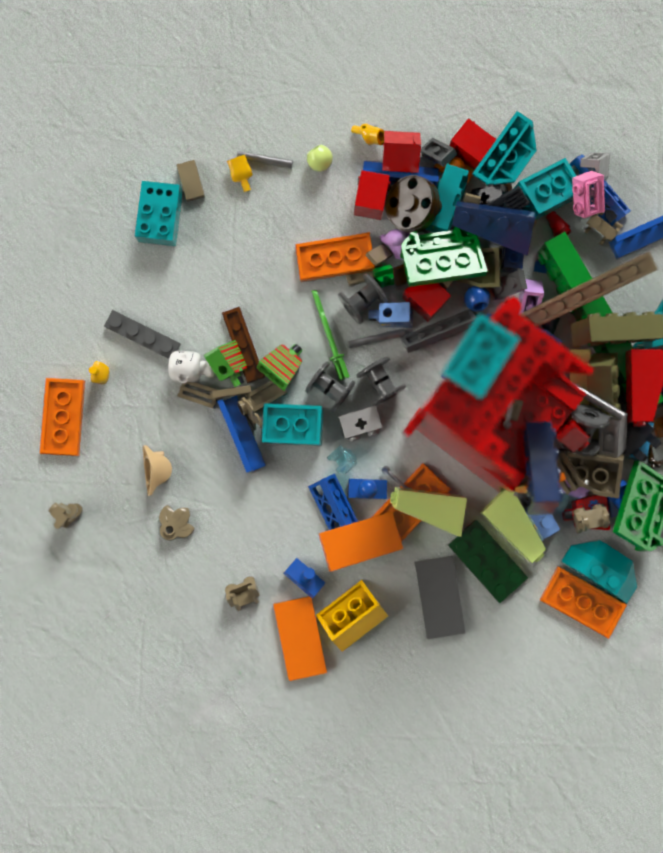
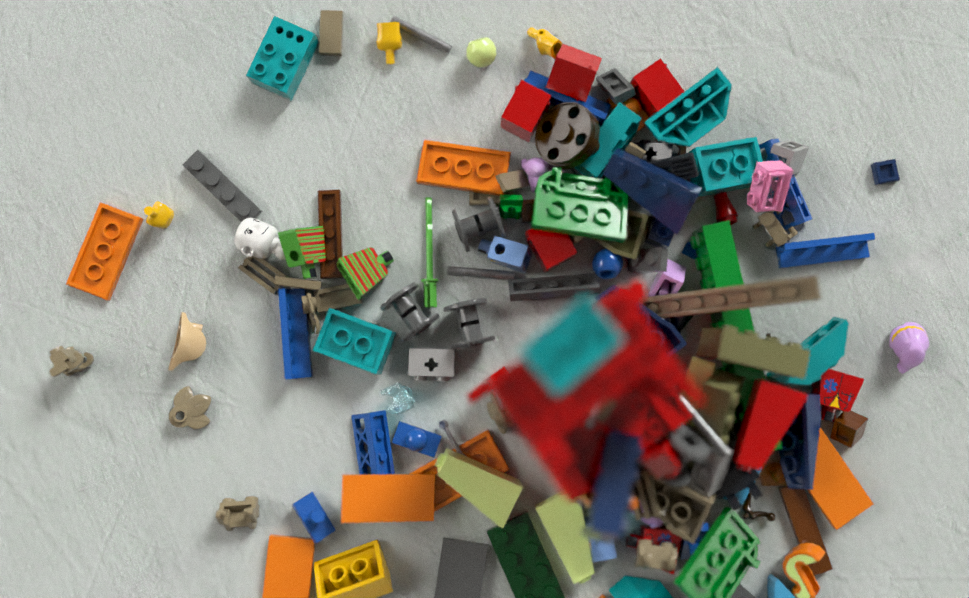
camera: 15 degrees right, 0 degrees up
(431, 448) = (500, 416): none -> dark tan plate

